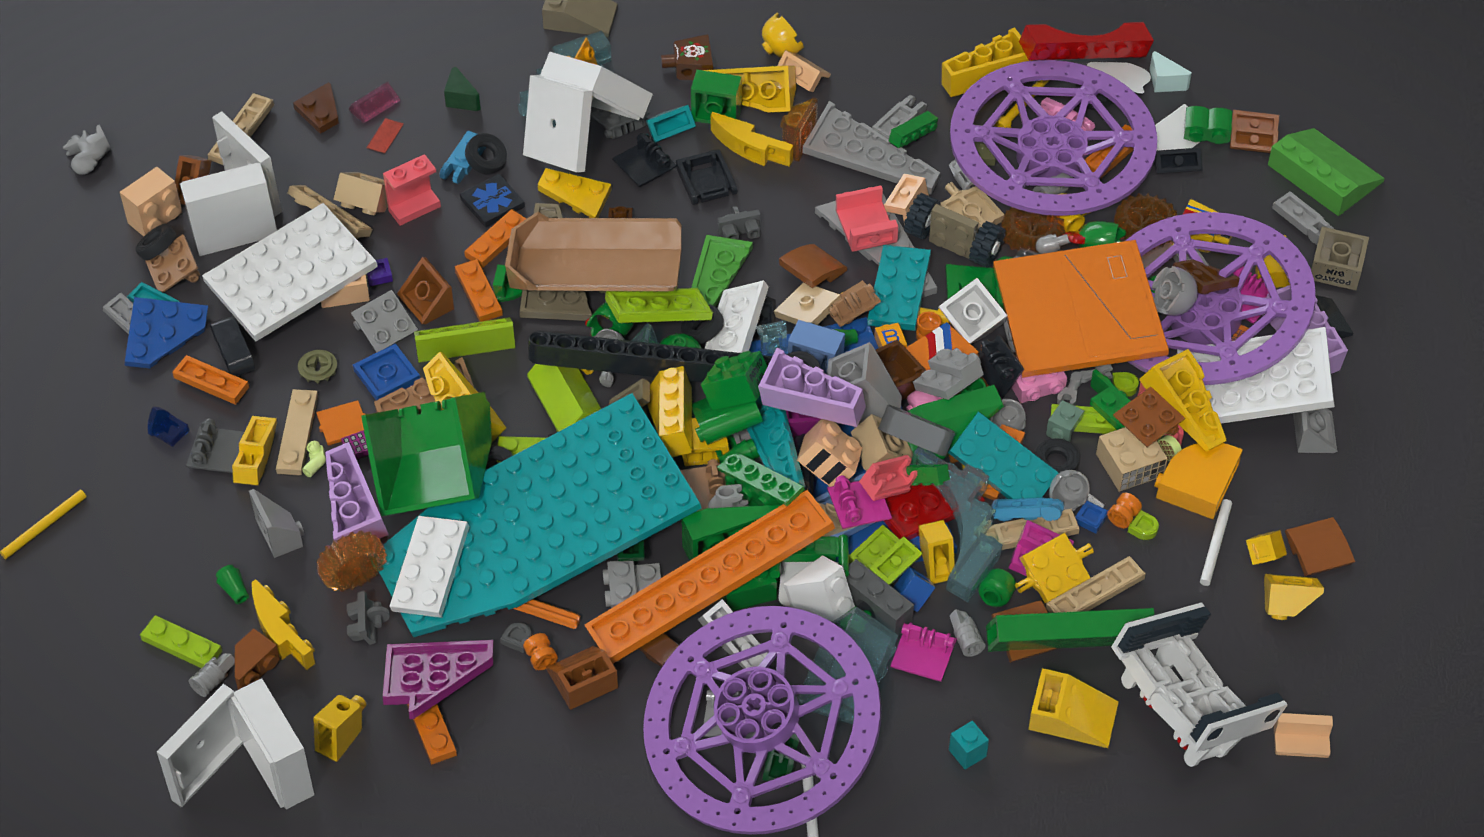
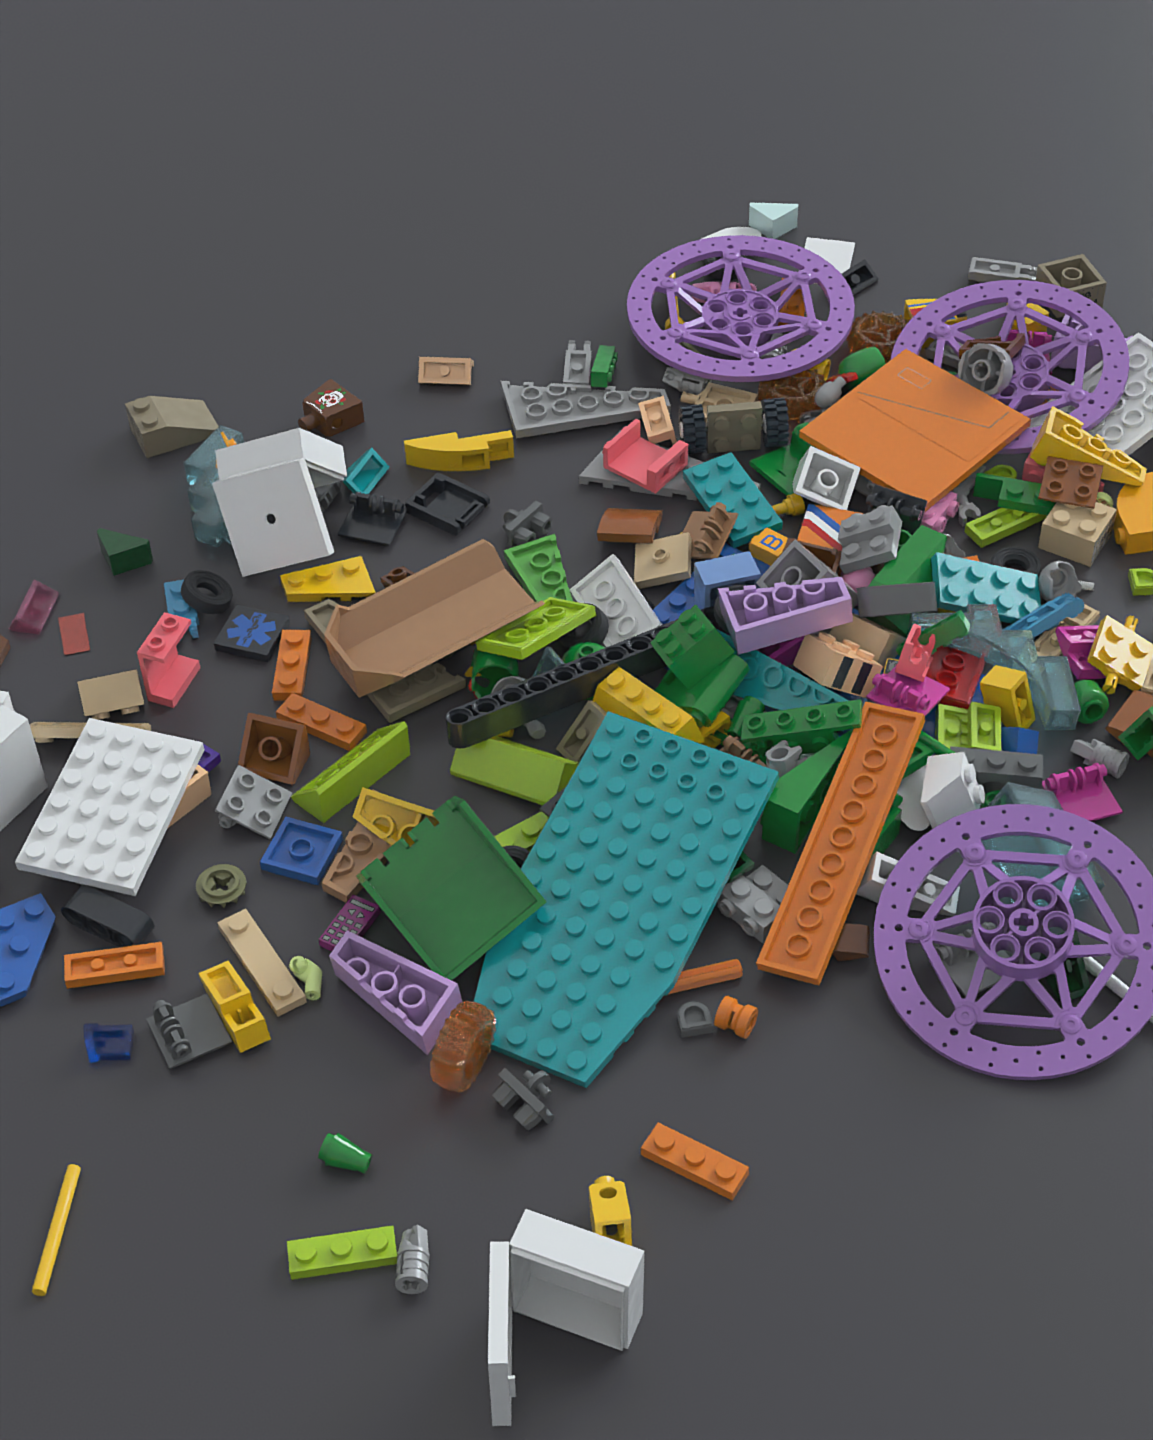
camera: 35 degrees left, 5 degrees down
(254, 658) = (443, 1215): dark orange slope -> none
(276, 525) = (335, 1064): light grey slope -> none
(277, 626) = (427, 1164): yellow slope -> none
(340, 421) = (300, 925): orange piece -> none
(429, 566) = (550, 1002): white plate -> none
(431, 671) = (649, 1105): magenta wing -> none
(501, 286) = (347, 700): green tile -> none
(584, 676) = (802, 1010): dark orange slope -> none
(716, 94) = (393, 422): green brick -> none
(766, 87) = (418, 403): yellow wedge -> none
(772, 337) = (672, 596): clear light blue slope -> none
(779, 37) = (401, 348): yellow cylinder -> none
(799, 124) = (497, 410): clear orange slope -> none
(927, 323) = (792, 516): orange wheel -> none
(967, 68) = (609, 287): yellow wedge -> none
(1048, 43) = (663, 233): red arch -> none
(1064, 421) = (993, 532): sand green bracket -> none
(1091, 517) = (1095, 597): blue tile -> none
(1124, 510) = (1118, 576): orange wheel -> none
(1208, 124) = (849, 240): green brick -> none
(1254, 131) = (889, 228): dark orange slope -> none
(1323, 169) = (977, 232): bright green slope -> none

